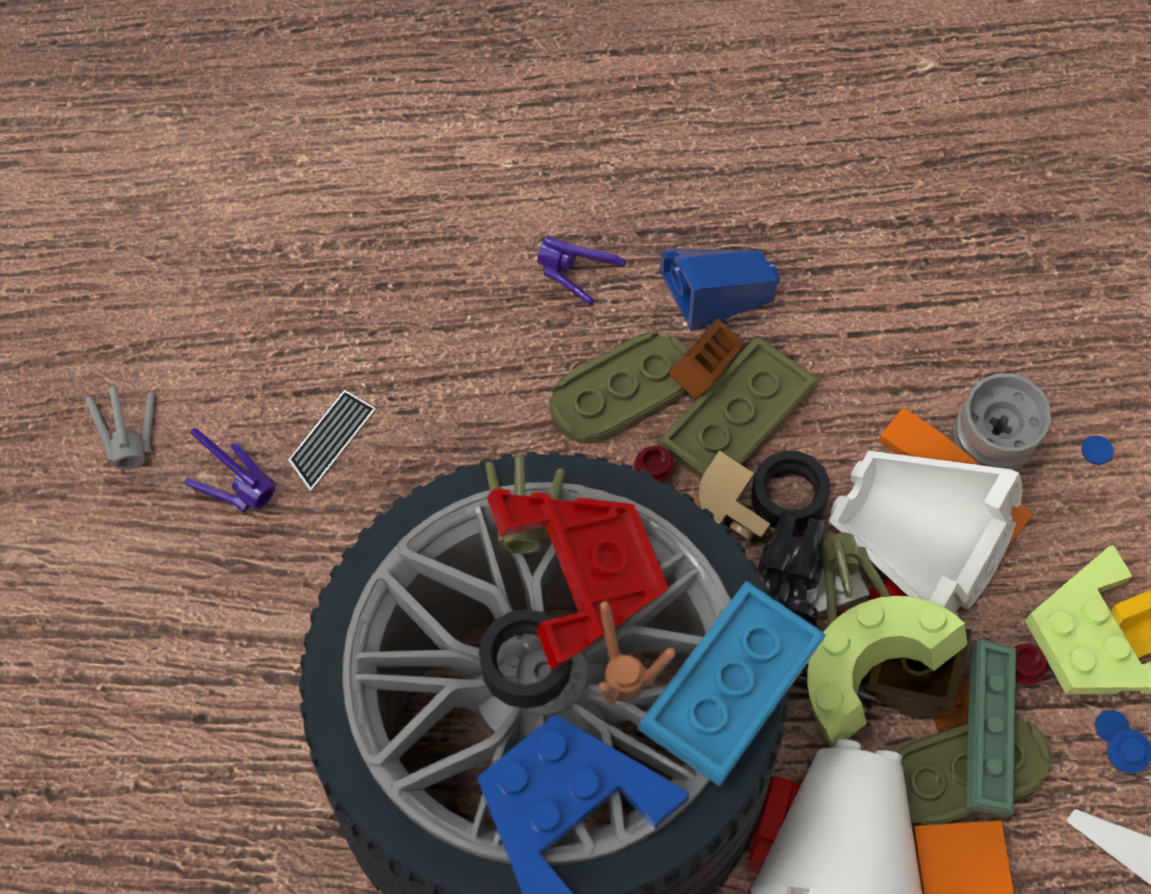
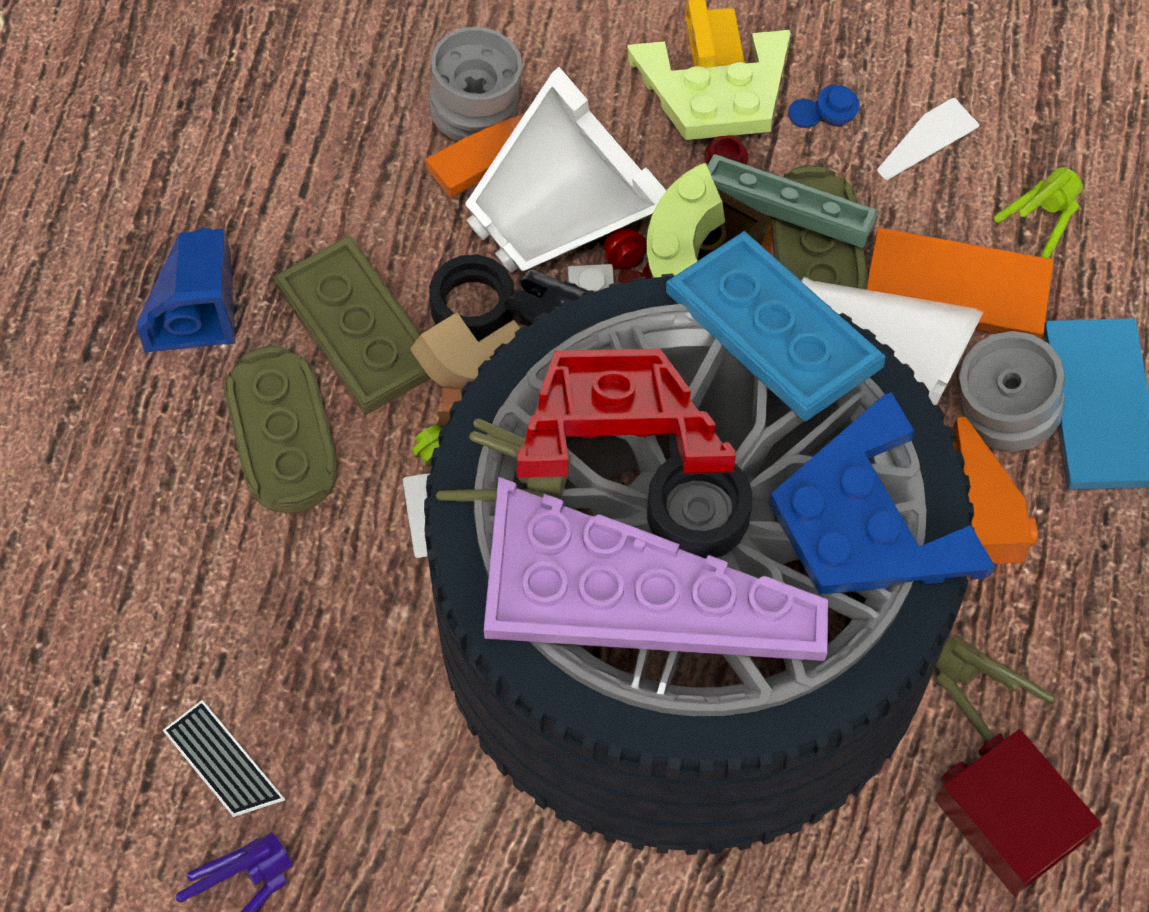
camera: 75 degrees left, 0 degrees up
(432, 605) = (618, 586): none -> lavender wing
(560, 256) = (86, 442): dark purple plant -> none
(624, 673) = (747, 413): nougat plant -> none
(655, 461) = (392, 420): dark red plate -> none
(706, 360) = (290, 334): dark orange slope -> none
(844, 560) = (577, 261): olive plant -> none
(1097, 450) = (517, 27): blue piece -> none

